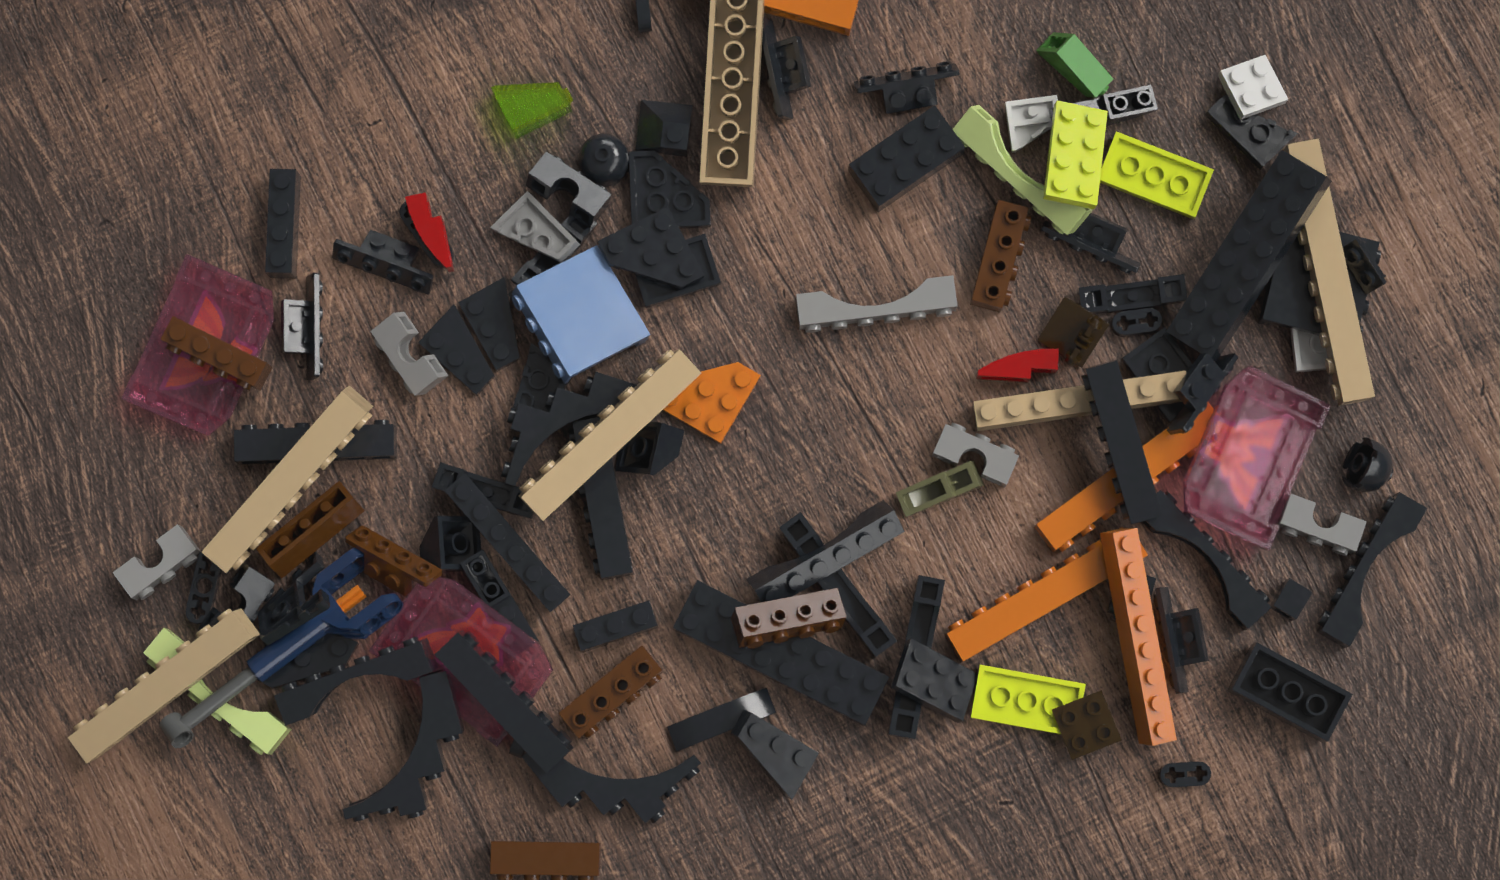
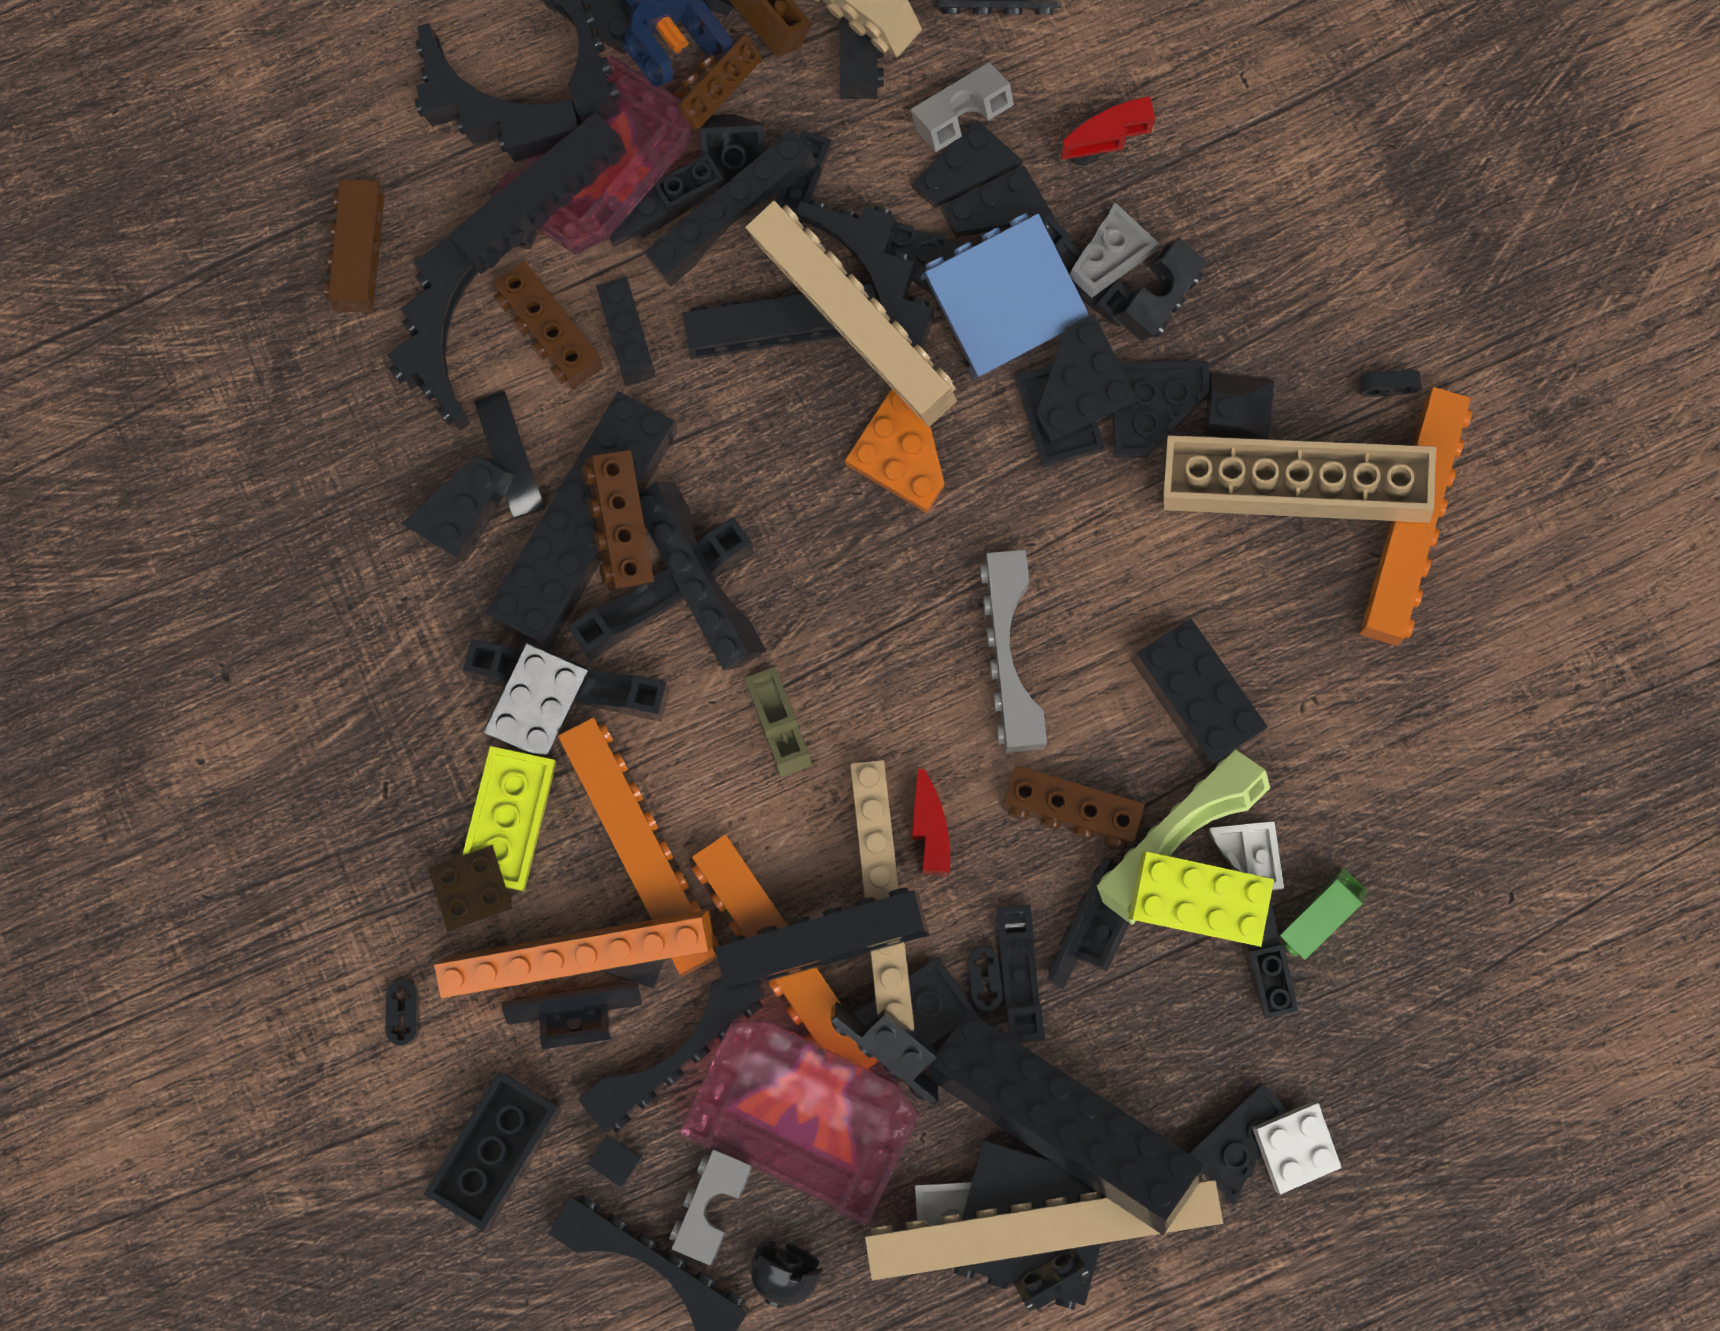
camera: 90 degrees right, 5 degrees down
(386, 259) = (1079, 86): black bracket -> none
(532, 105) = (1265, 250): clear neon green slope -> none
(604, 159) = (1198, 333): black cylinder -> none
(650, 449) = (839, 376): black slope -> none
(785, 67) = (1316, 548): black bracket -> none
(908, 89) = (1290, 701): black bracket -> none
(997, 460) = (809, 793): light grey arch -> none
(1073, 332) = (972, 895): dark brown hinge -> none
(1155, 175) = (1178, 1012): neon yellow plate -> none

